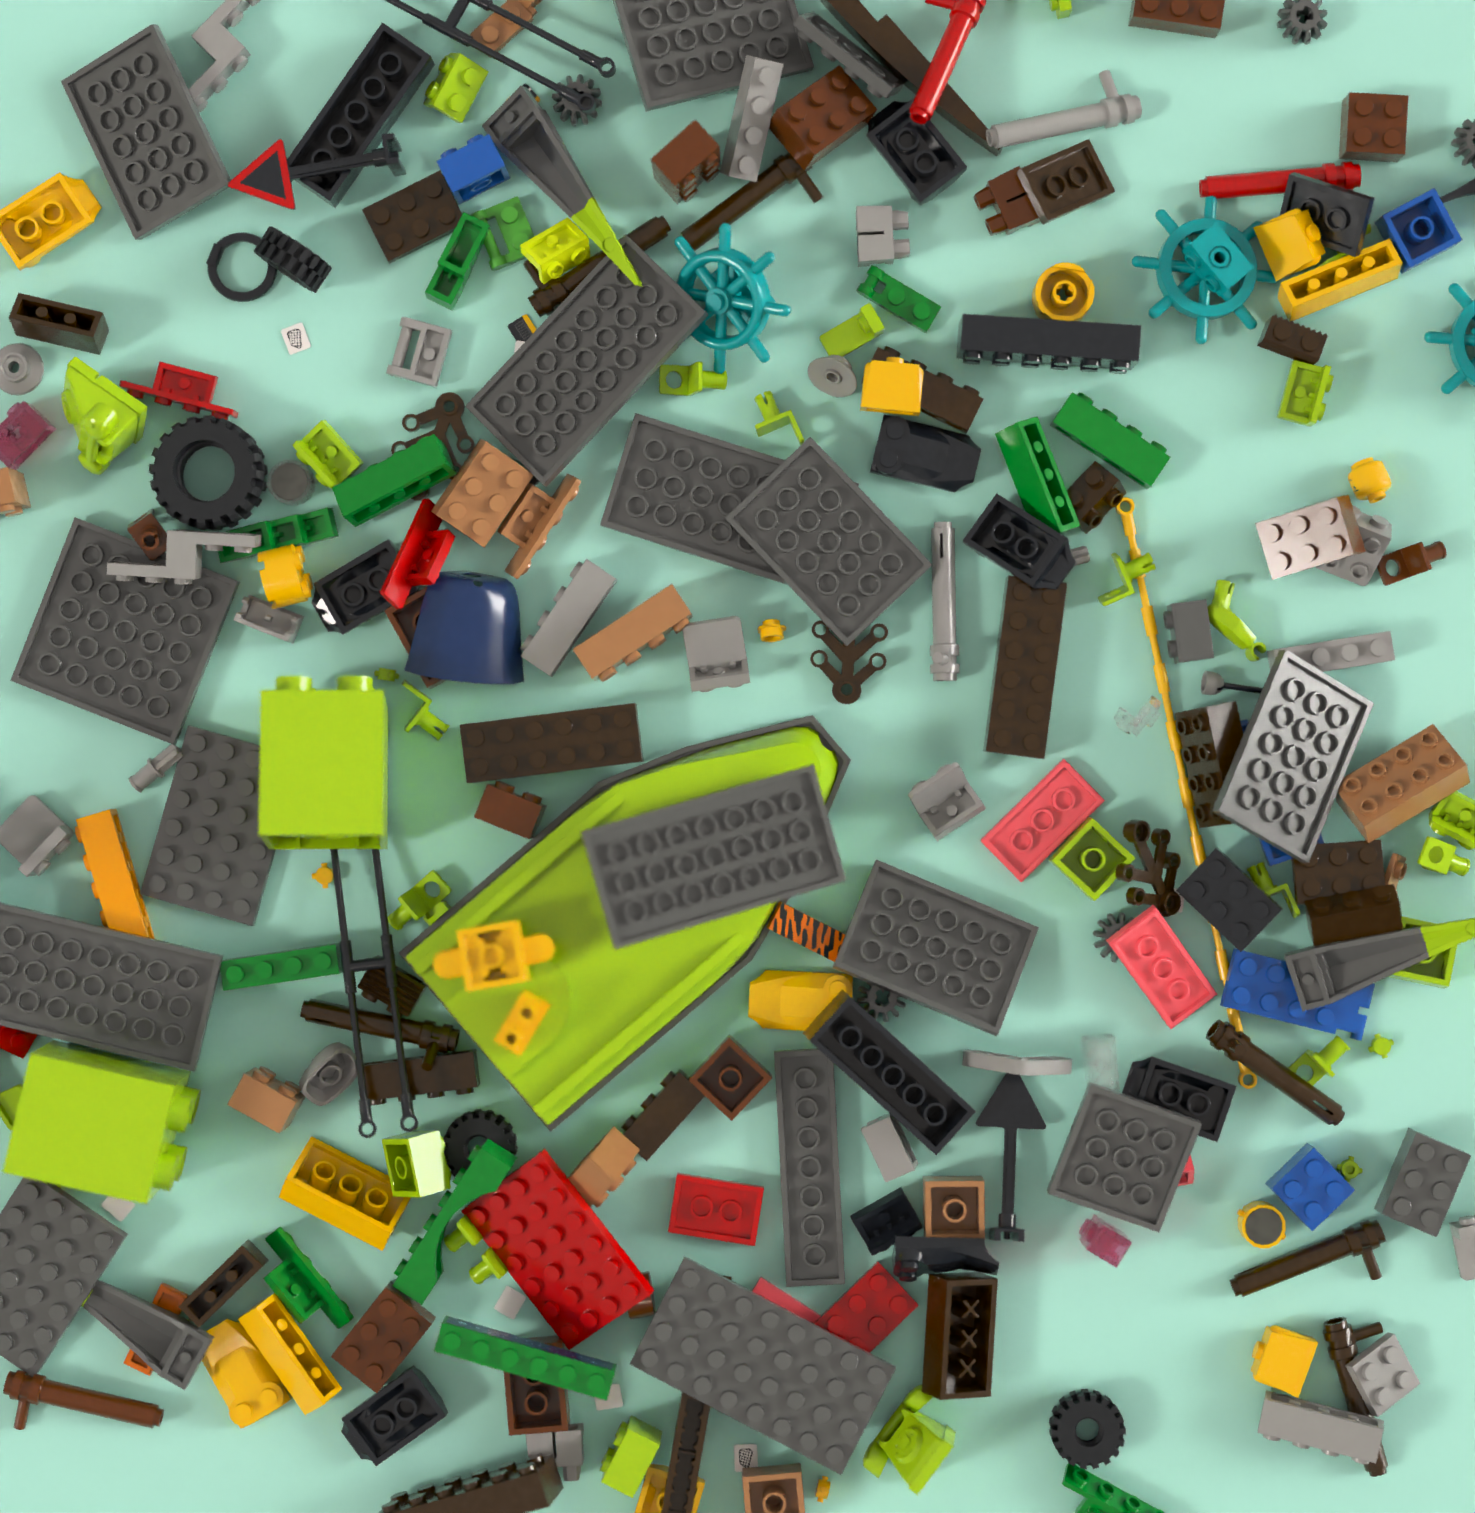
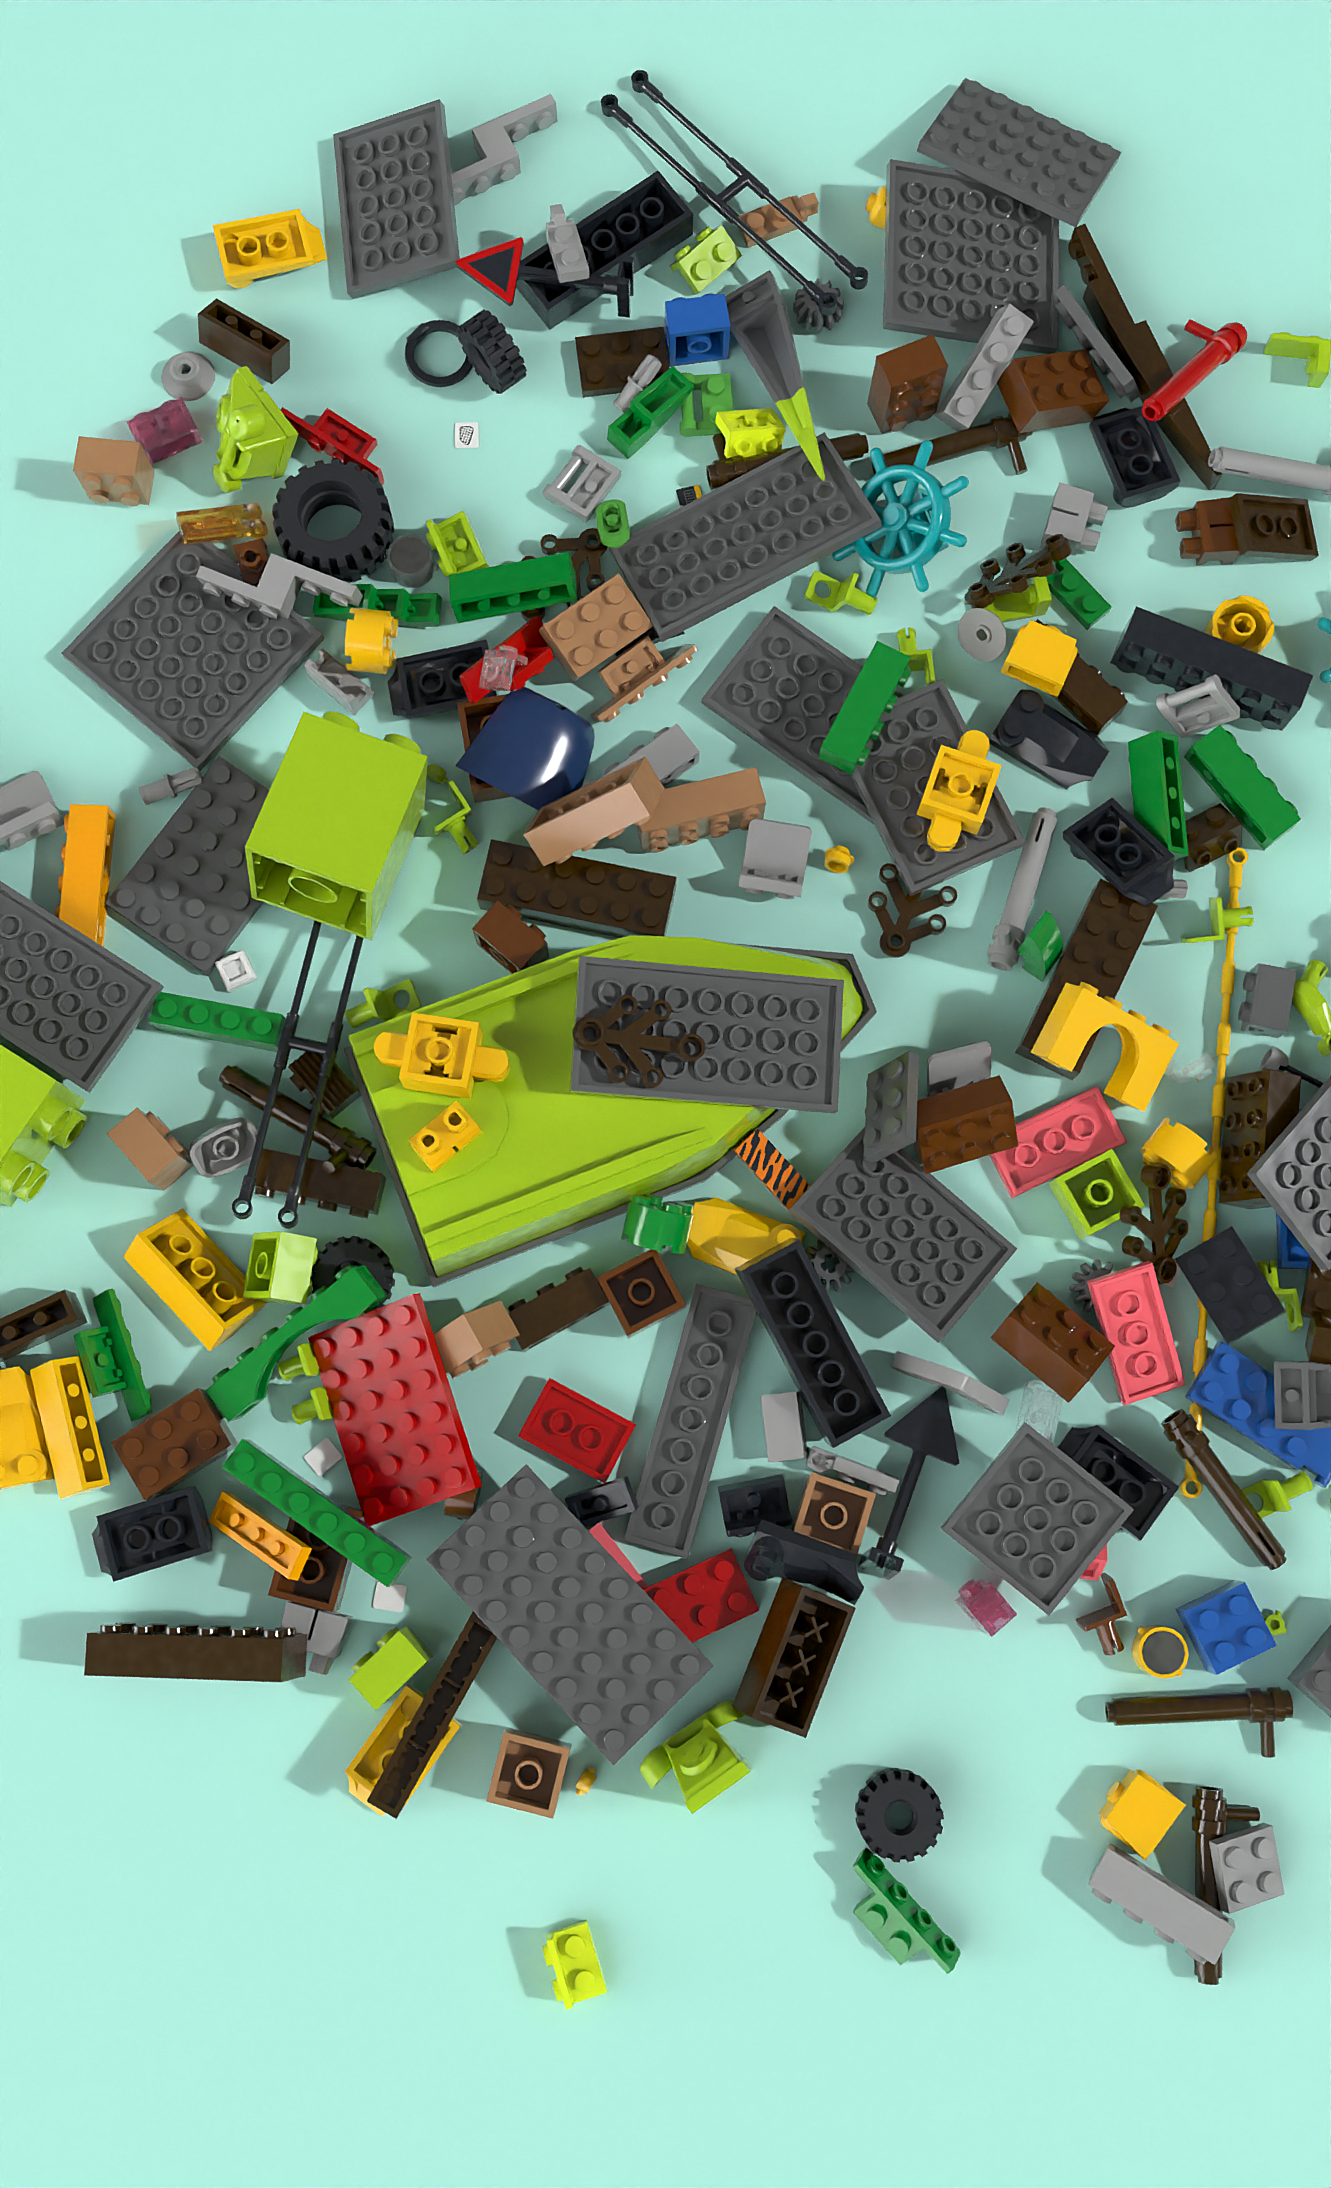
camera: 20 degrees right, 10 degrees down
(106, 509) = (221, 523): none -> clear orange plate
(277, 913) = (236, 970): none -> white tile
(323, 875) = (297, 948): yellow piece -> none
(325, 136) = (565, 247): none -> light grey hinge
(412, 571) = (499, 668): none -> clear bracket
(437, 240) = (638, 382): none -> light grey axle
(465, 389) = (613, 523): none -> bright green plate
(483, 1389) = (260, 1535): none -> light orange plate
(544, 679) = (595, 812): none -> medium nougat brick
(650, 888) = (632, 1040): none -> dark brown plant
(724, 1017) = (657, 1224): none -> green brick
(745, 1456) = (514, 1715): white sticker -> none
(749, 492) = (865, 707): none -> green brick
(757, 1262) = (602, 1502): none -> black plate
(843, 310) = (1015, 574): none -> dark brown plant
(858, 543) = (958, 790): none -> yellow brick
(890, 846) = (891, 1107): none -> dark grey plate
(956, 1163) = (850, 1470): none -> light grey hinge
(957, 840) = (964, 1124): none -> reddish brown brick
(976, 657) = (1042, 947): none -> green slope
(1029, 711) = (1144, 1047): none -> yellow arch
(1047, 385) = (1199, 714): none -> light grey plate
(1093, 1001) = (1053, 1342): none -> reddish brown brick
(1150, 800) = (1181, 1152): none -> yellow brick
(1207, 1215) = (1104, 1619): none -> reddish brown bracket

